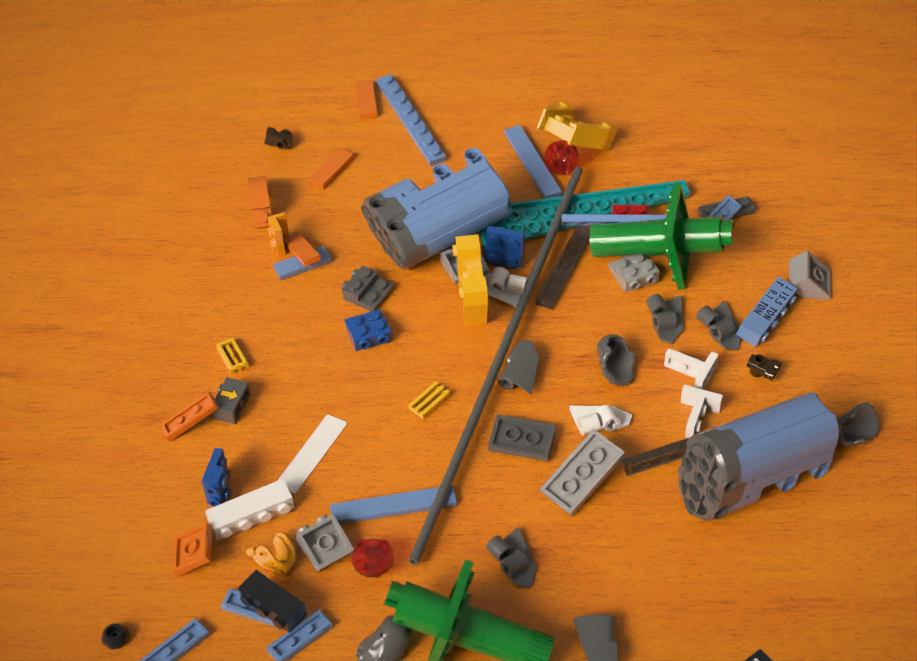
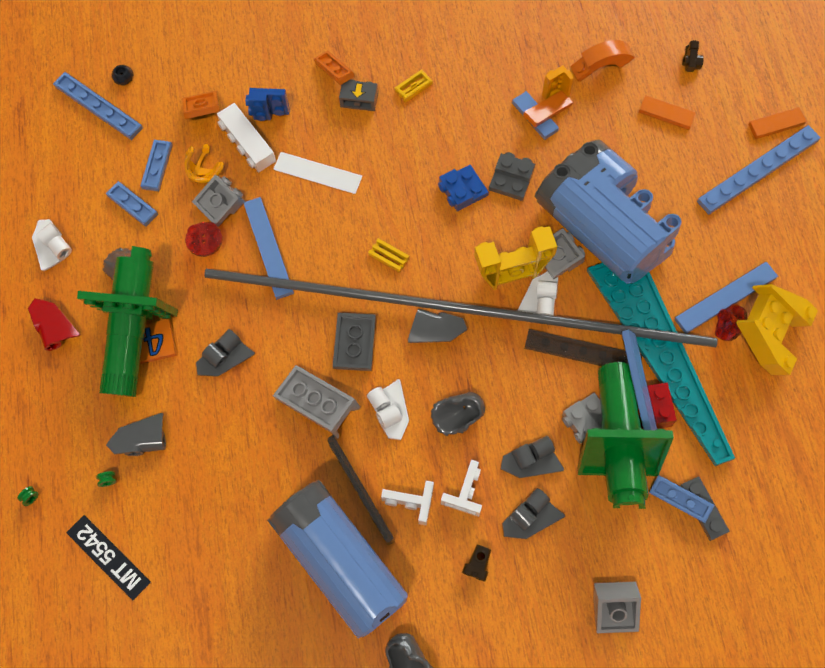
camera: 80 degrees right, 20 degrees up
(272, 601) = (152, 173): black brick -> none
(504, 247) = (581, 286): blue plate -> none
(767, 311) = (556, 562): medium blue brick -> none

